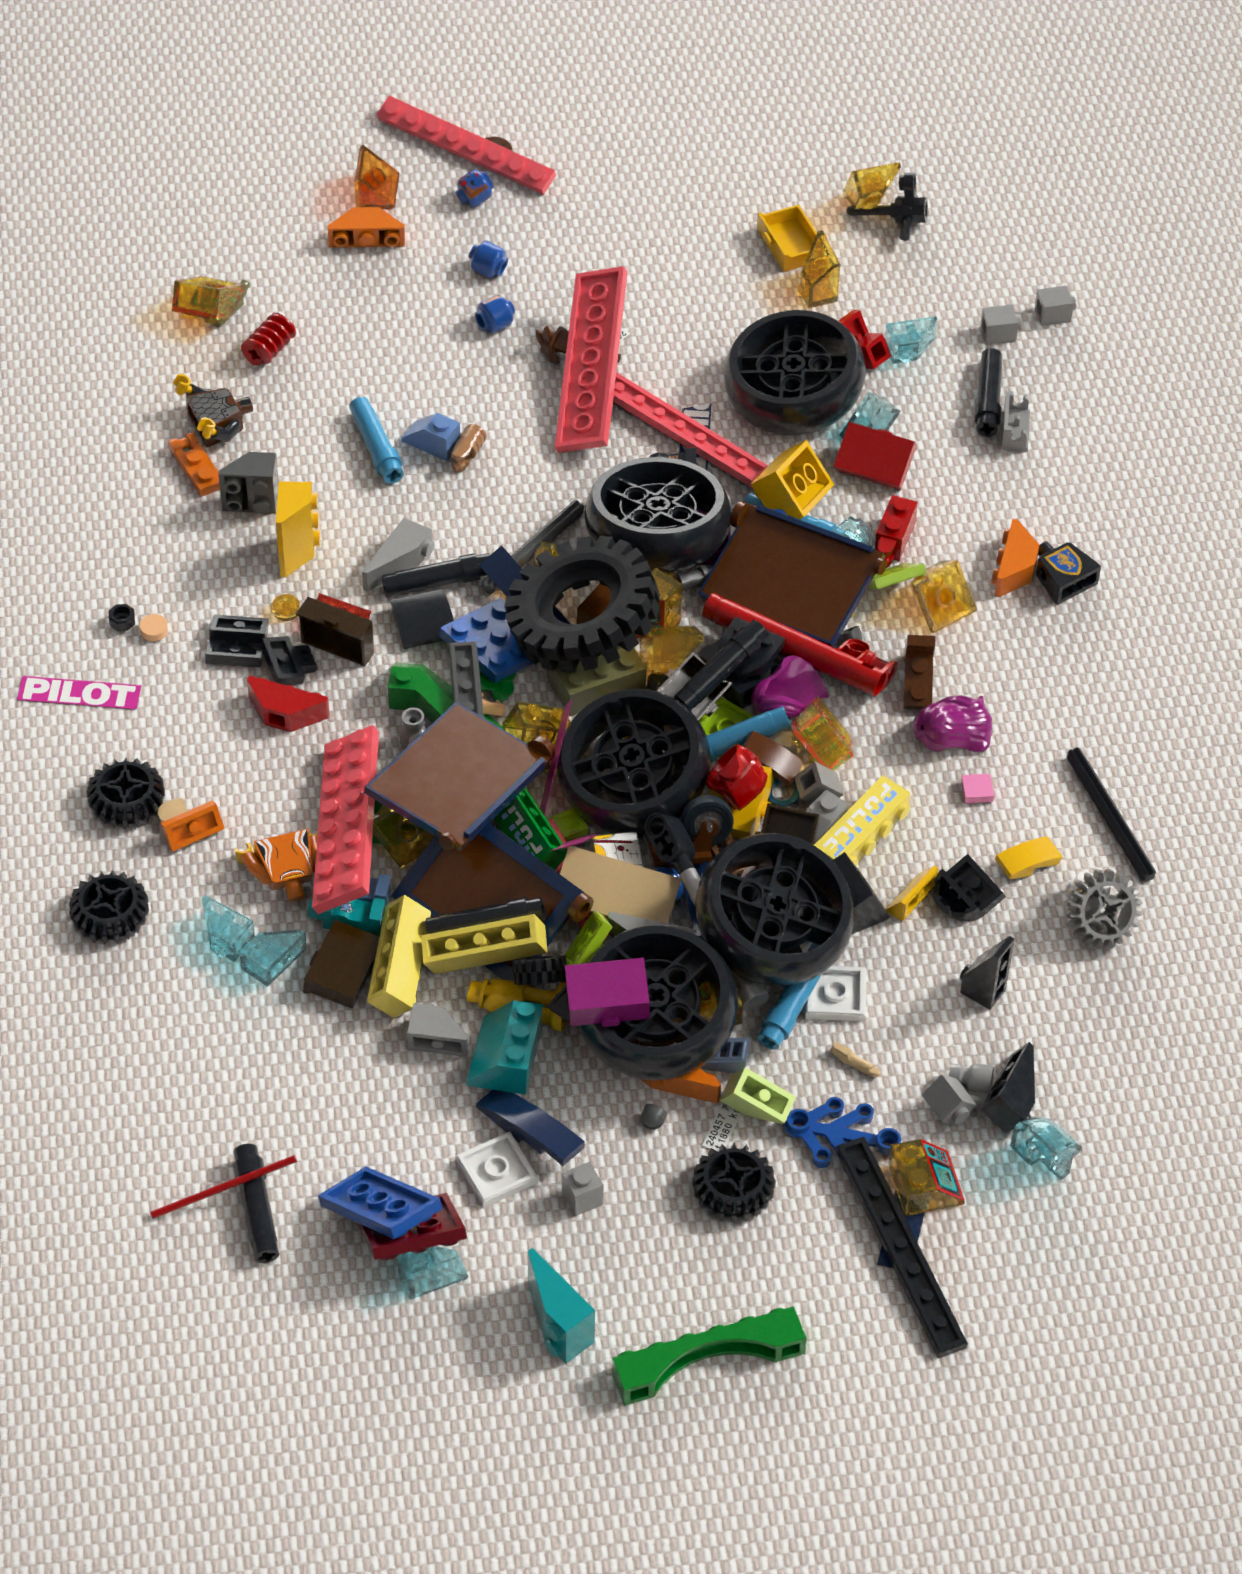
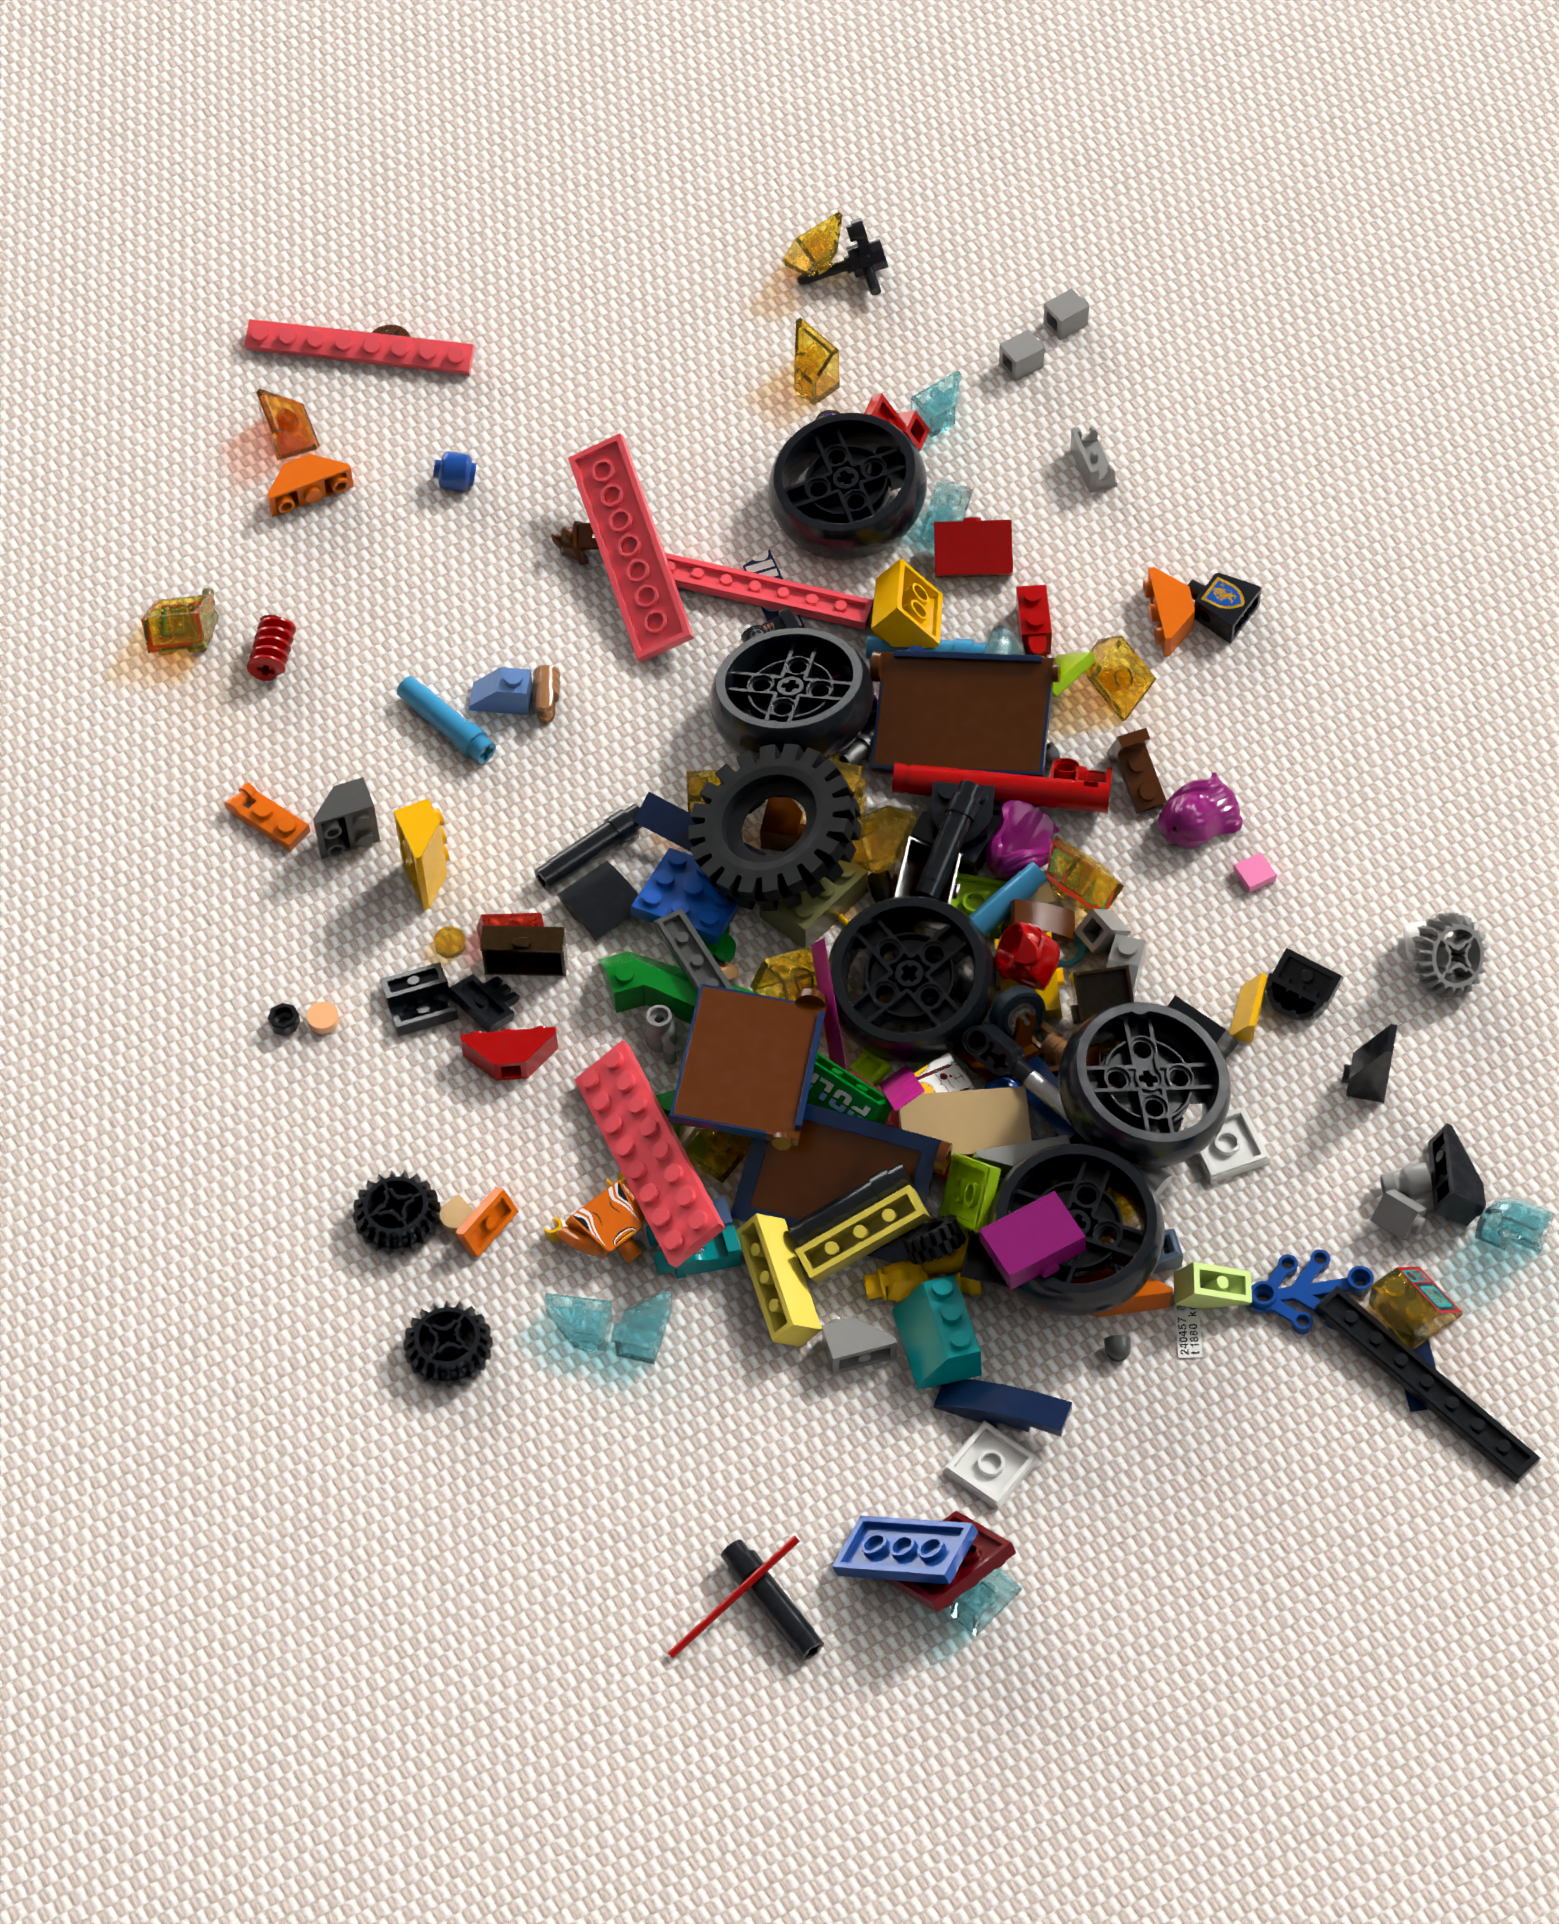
camera: 20 degrees left, 5 degrees up
(79, 692) = (281, 1119): sticker -> none
(213, 412) = (256, 751): torso -> none
(342, 964) = (722, 1310): dark brown container -> none
(401, 551) = (541, 836): light grey slope -> none
(474, 188) = (397, 394): blue head -> none
(494, 314) = (495, 531): blue head -> none
(546, 534) = (676, 767): dark grey axle -> none
(562, 1312) = (1136, 1587): teal slope -> none
(582, 1188) = (1090, 1451): light grey brick -> none
(726, 1194) = (1233, 1373): black gear -> none
(767, 1336) = (1348, 1531): green arch -> none
(782, 1017) = (1191, 1193): dark azure piece -> none
(787, 235) = (756, 333): yellow container -> none
(847, 1057) = (1274, 1208): tan piece -> none
(866, 821) = (1167, 951): light yellow brick -> none
(988, 406) = (1057, 452): black piece -> none
(1027, 856) = (1342, 927): yellow slope -> none
(1111, 814) = (1398, 850): black axle -> none

